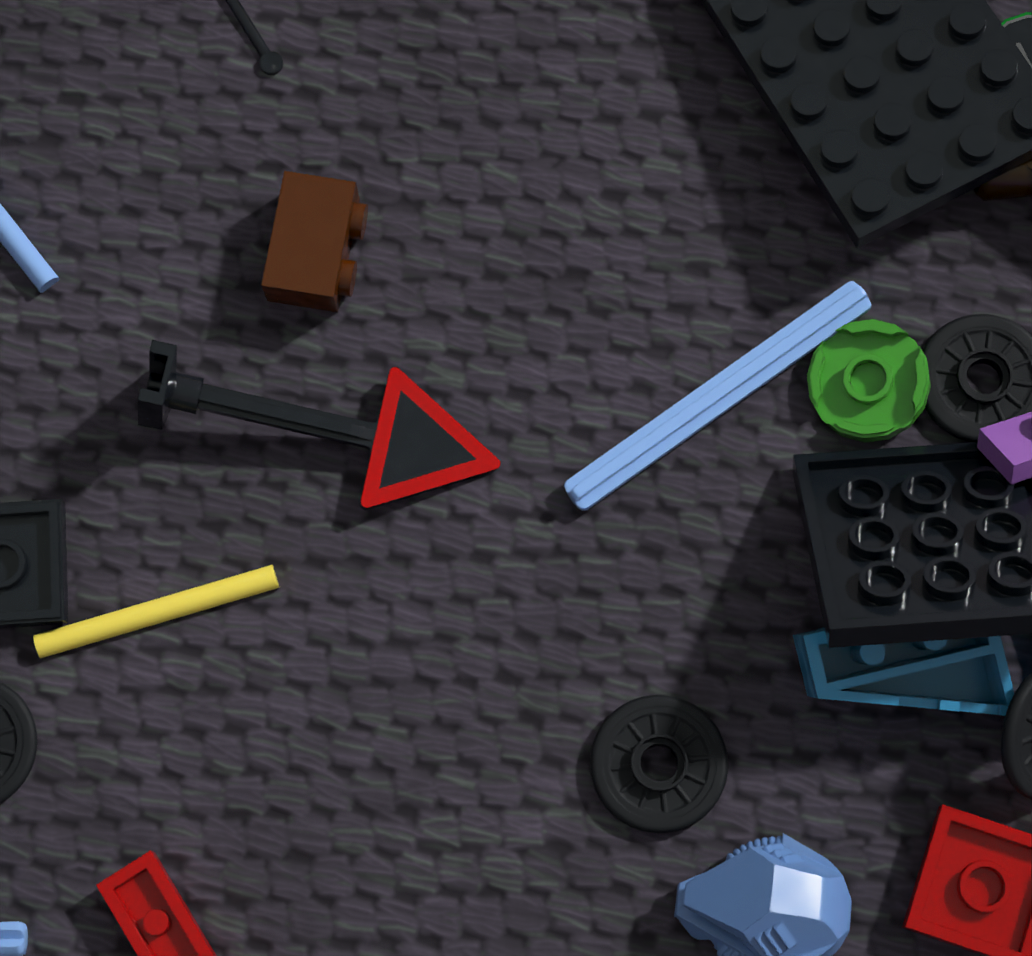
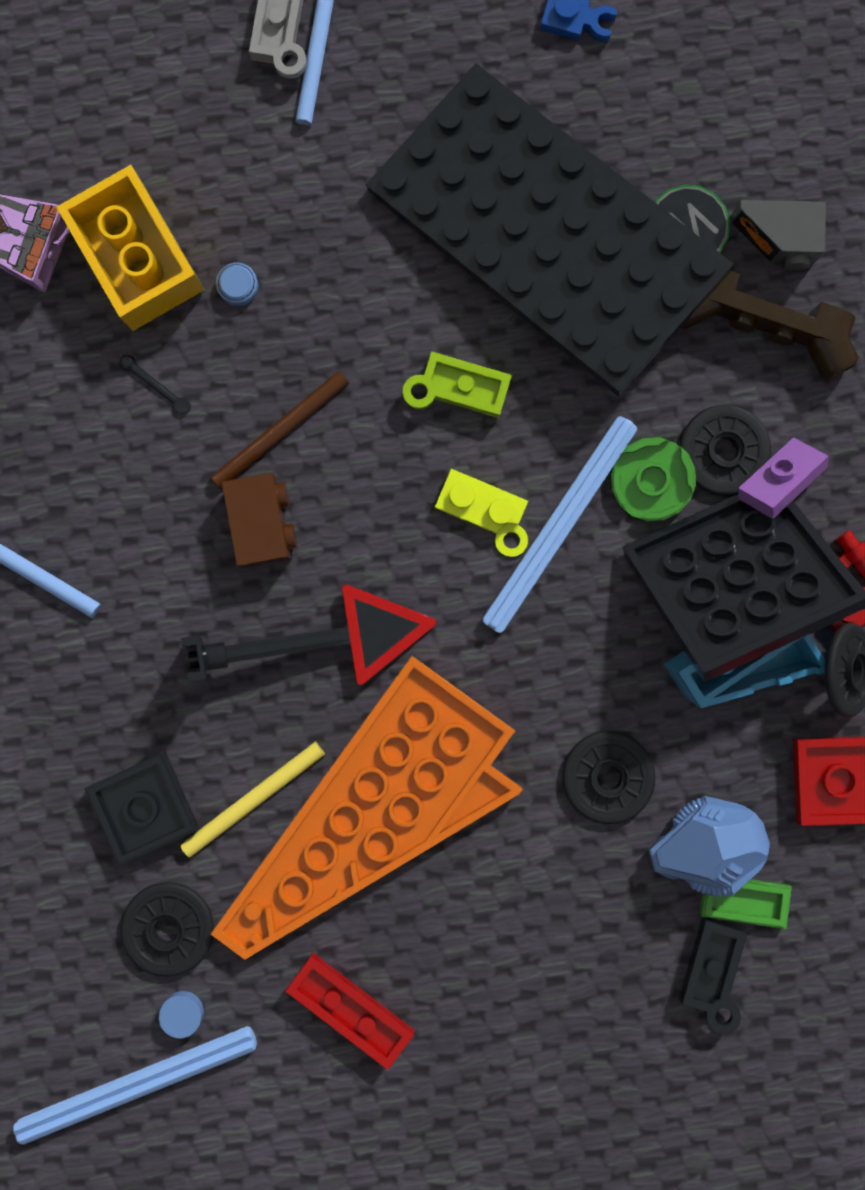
camera: 20 degrees left, 10 degrees up
(349, 673) = (392, 793): none -> orange wing
(393, 136) = (280, 429): none -> reddish brown bar
(623, 337) = (484, 507): none -> neon yellow hinge
(650, 164) = (459, 385): none -> lime hinge

